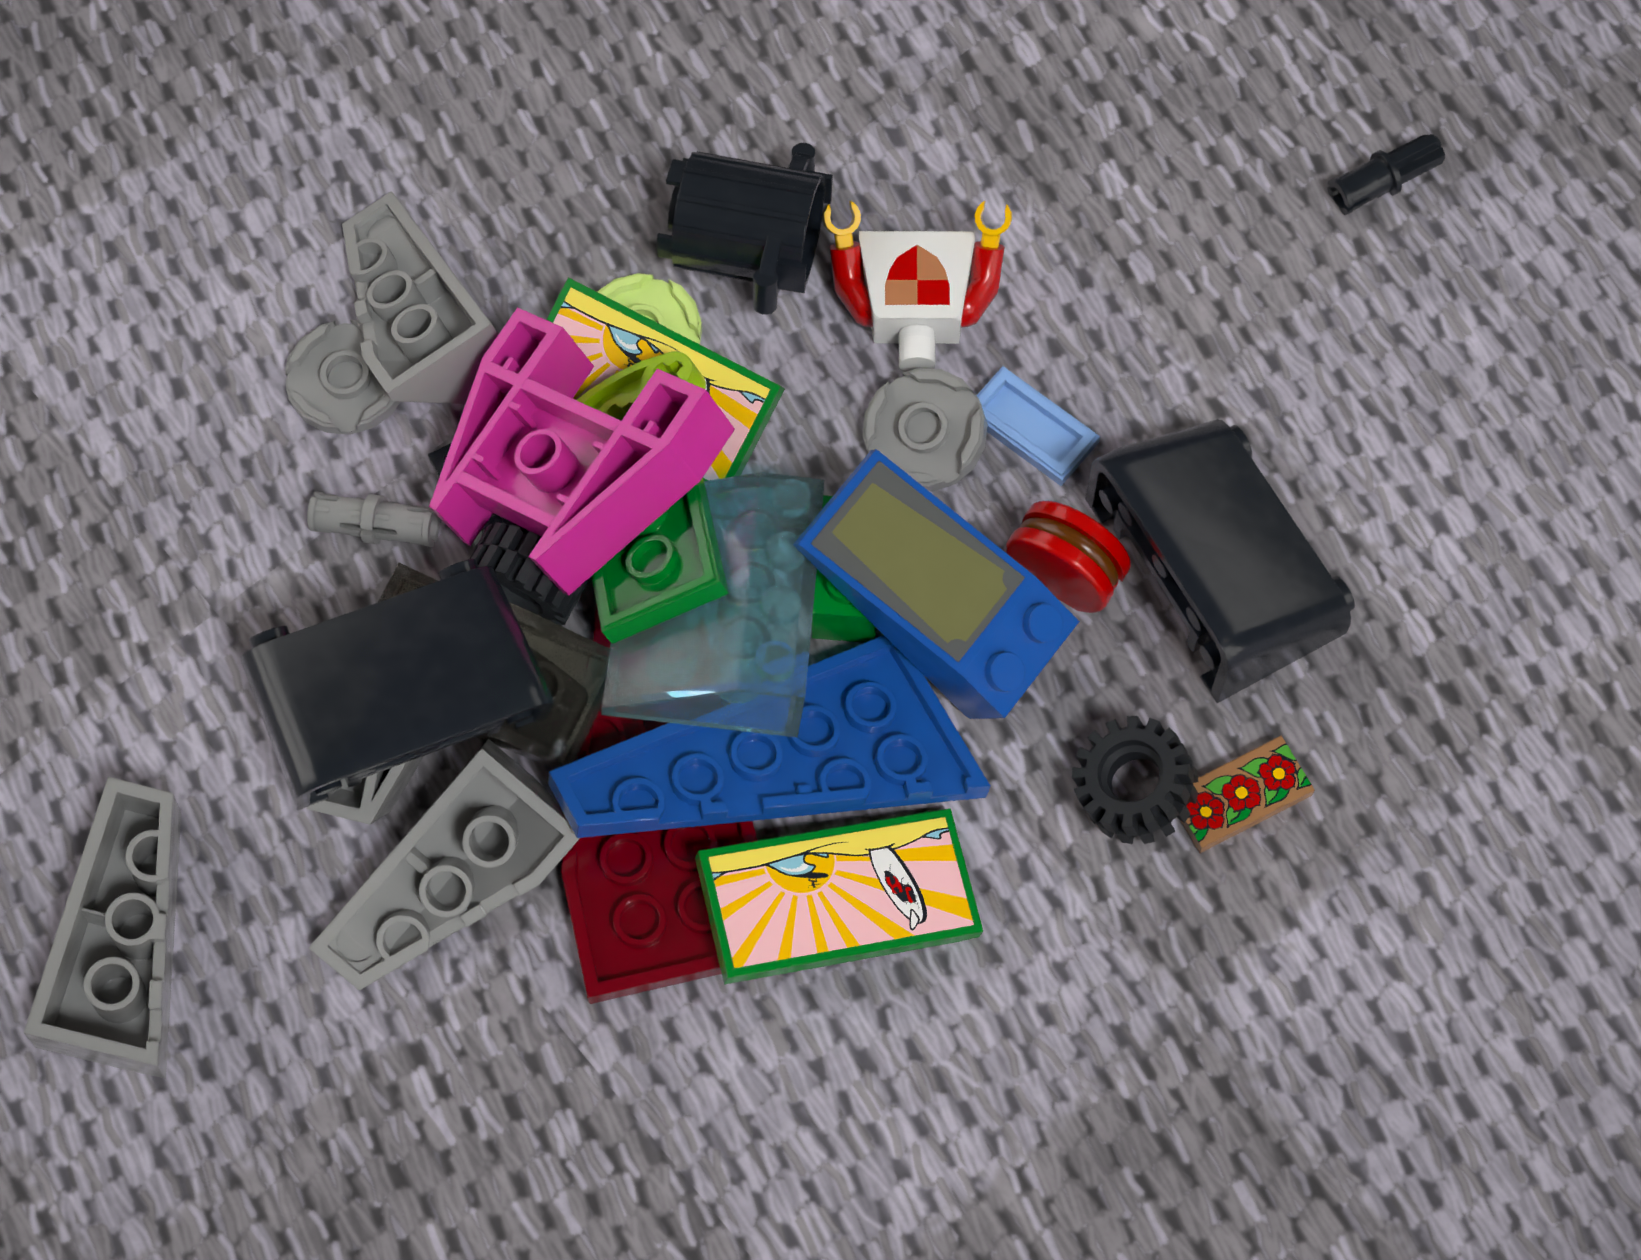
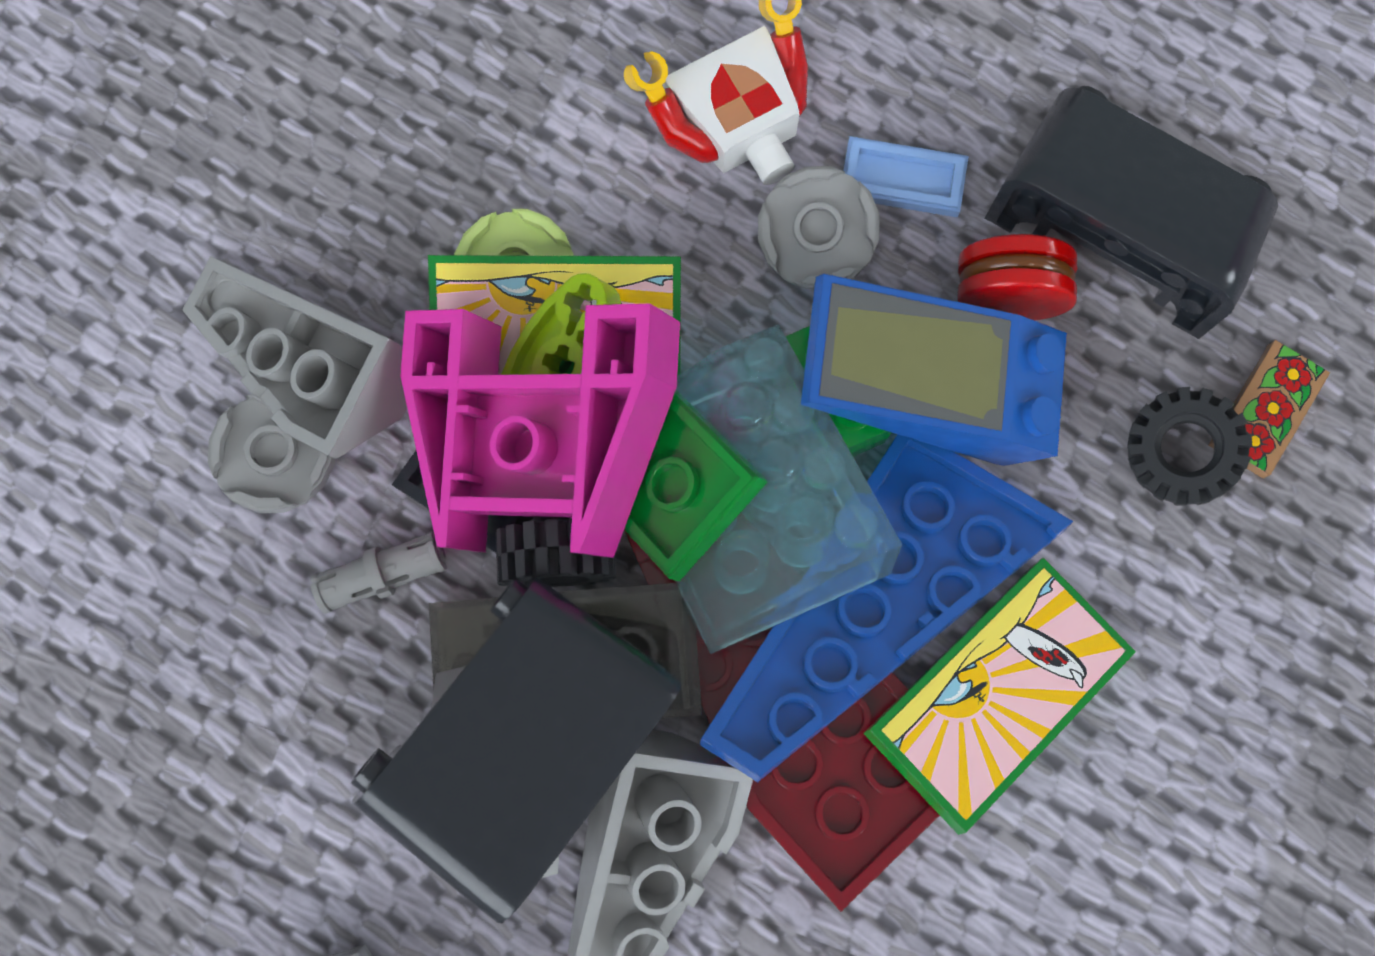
camera: 30 degrees left, 10 degrees up
(747, 220) = (558, 118): black container -> none

